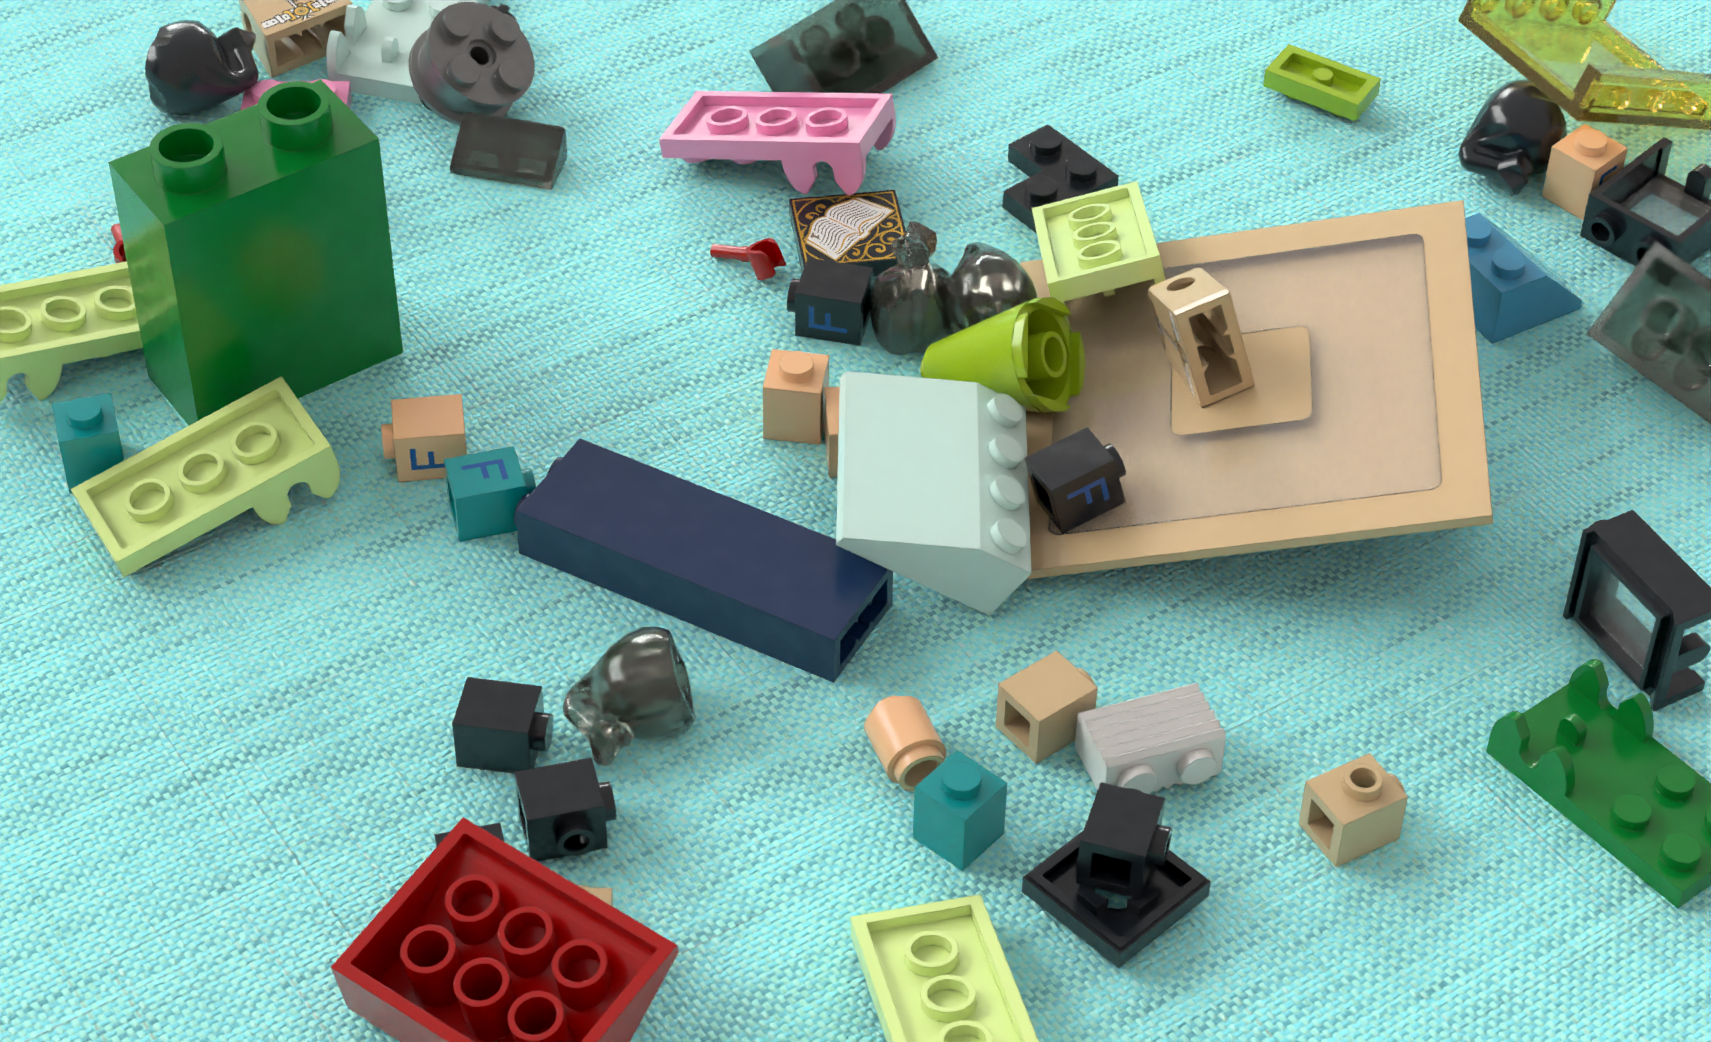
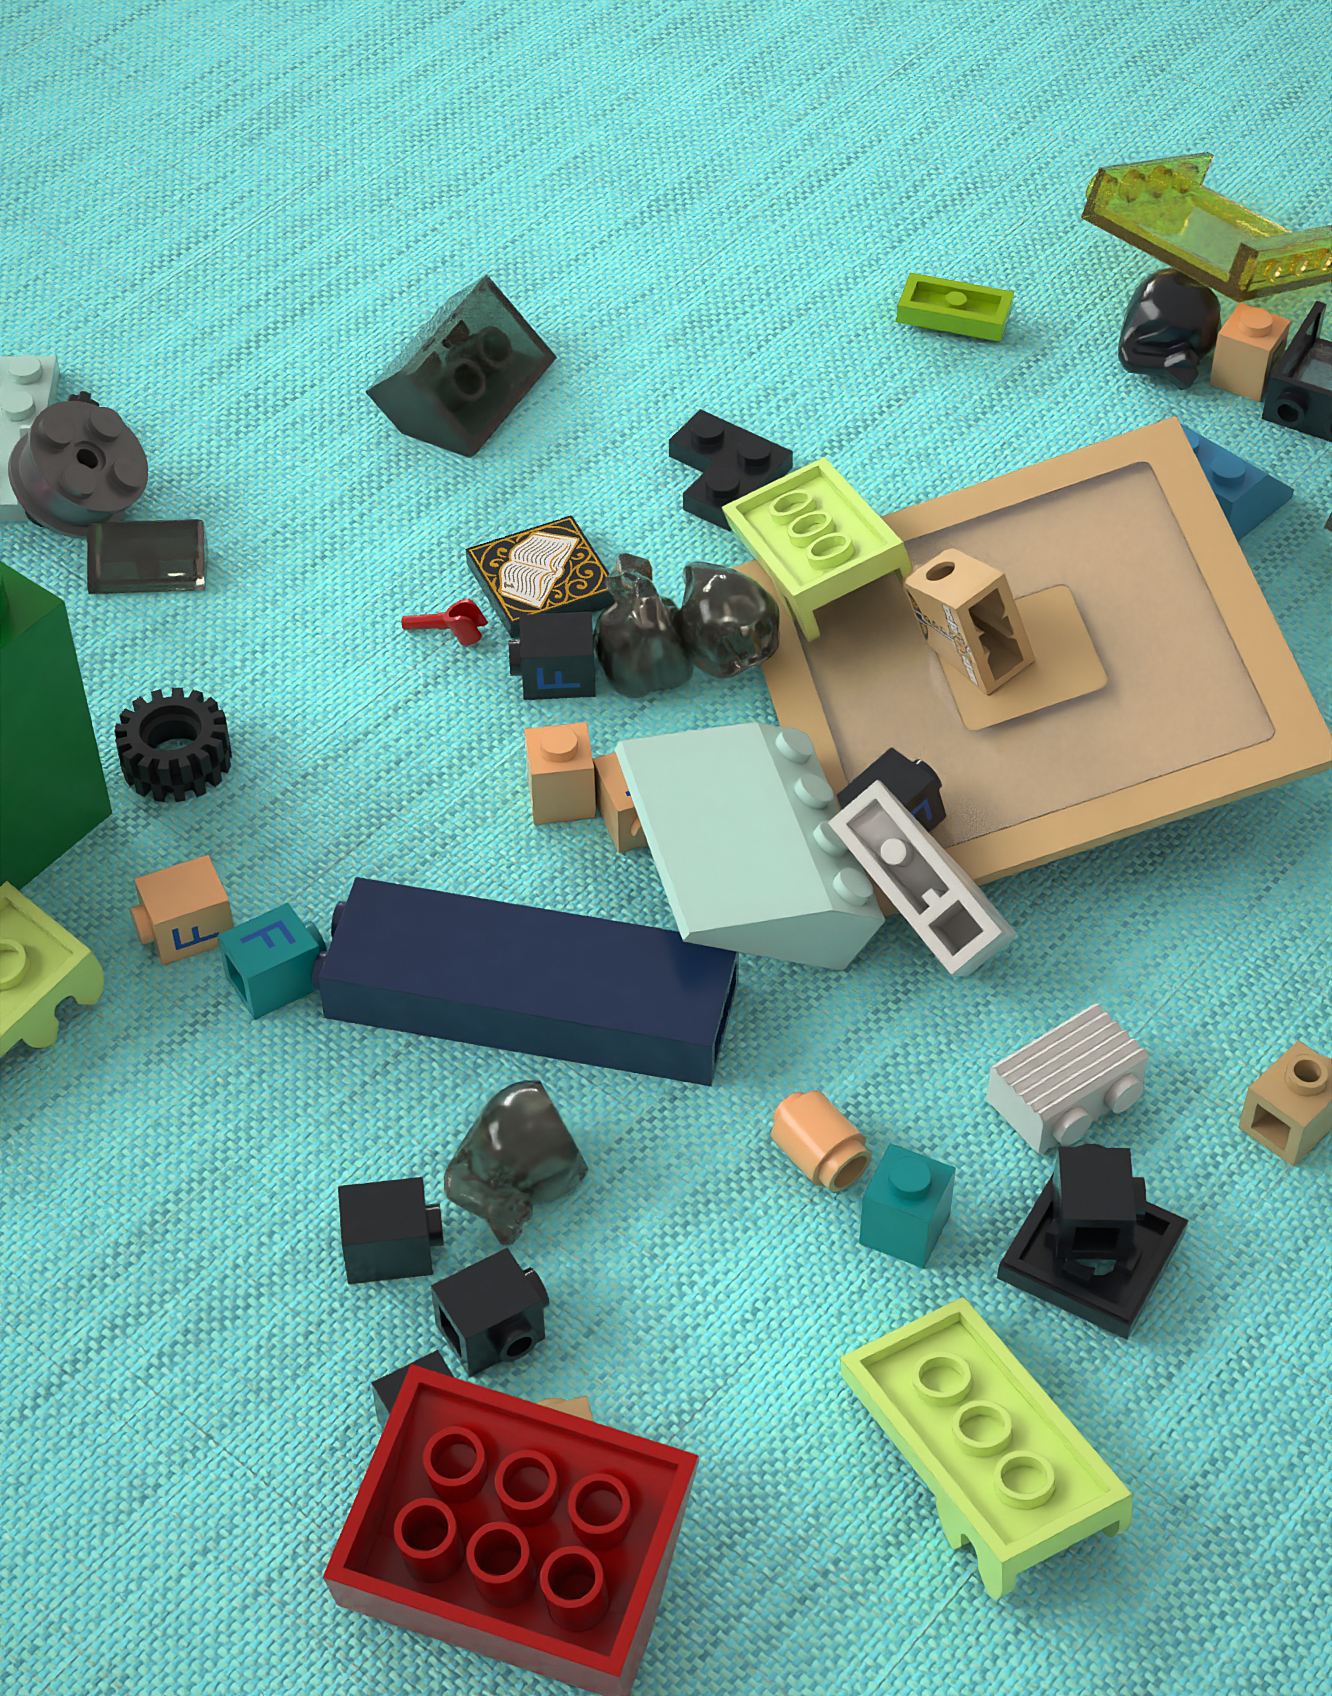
camera: 15 degrees left, 5 degrees up
(478, 326) = (174, 769): none -> black tyre
(787, 129) = (435, 472): bright pink hinge -> none
(1016, 354) = (775, 679): lime cone -> none
(1042, 705) = (947, 1063): tan brick -> none
(1076, 548) = (922, 881): none -> white slope

